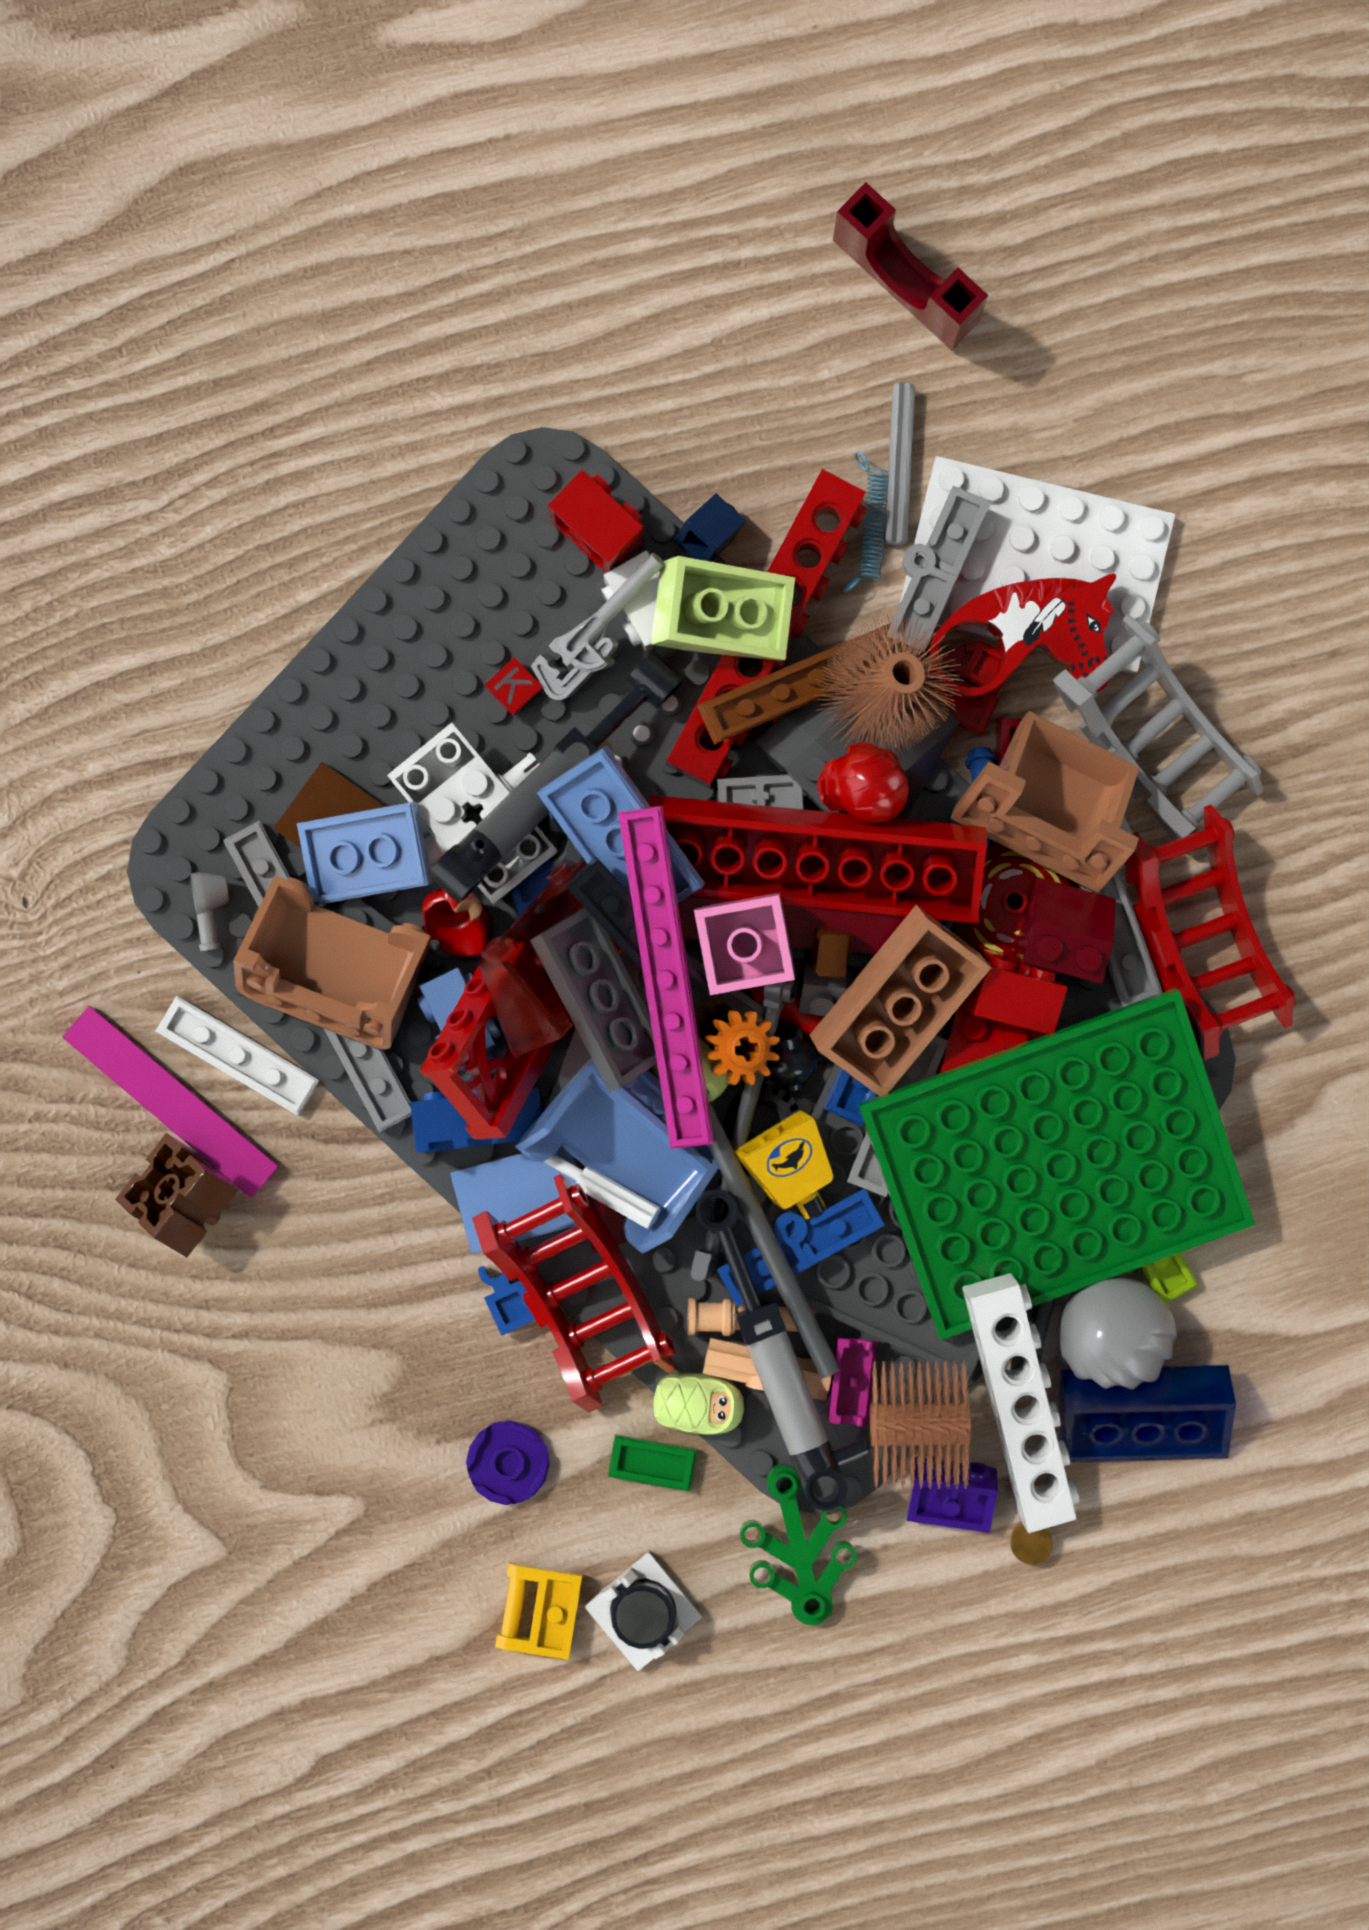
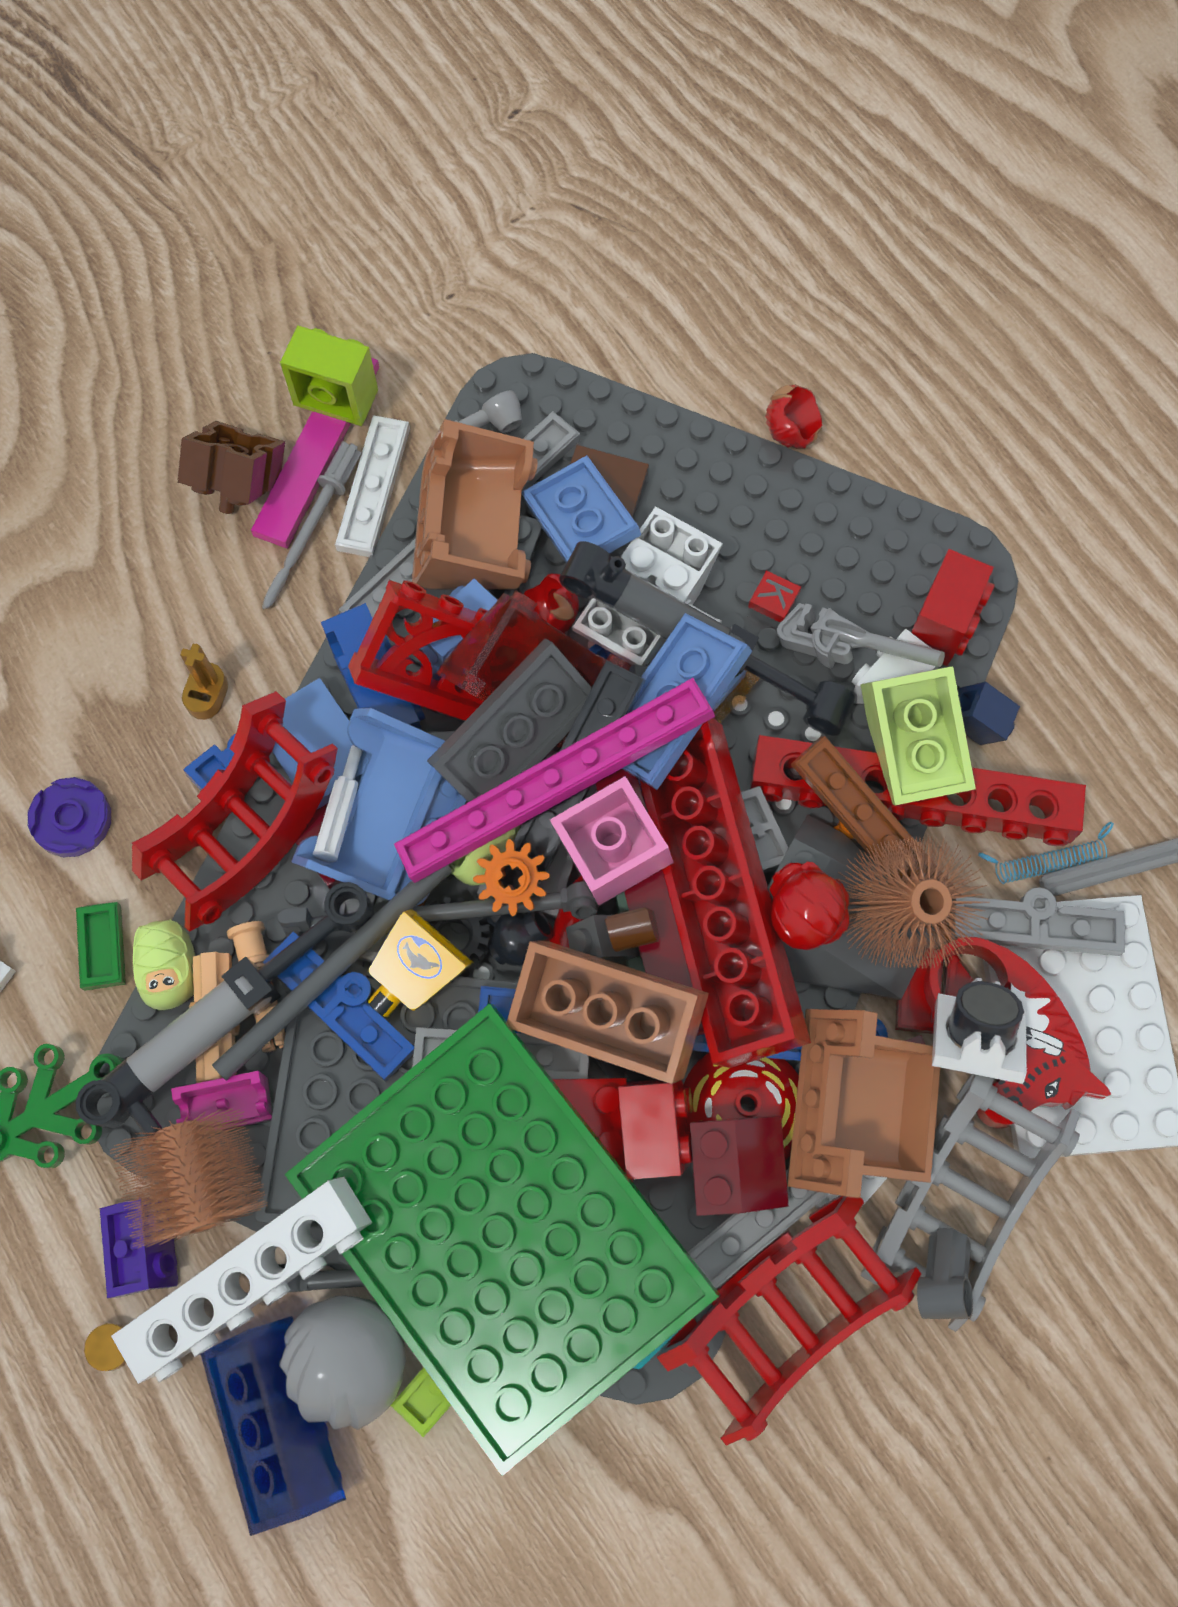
camera: 70 degrees right, 15 degrees down
(111, 1062) = (329, 375): none -> lime brick
(222, 1094) = (332, 483): none -> light grey piece
(316, 589) = (793, 416): none -> red hair
(408, 1288) = (203, 679): none -> pearl gold piece
(1026, 667) = (986, 1024): none -> piece
(1229, 787) = (946, 1288): none -> dark grey piece

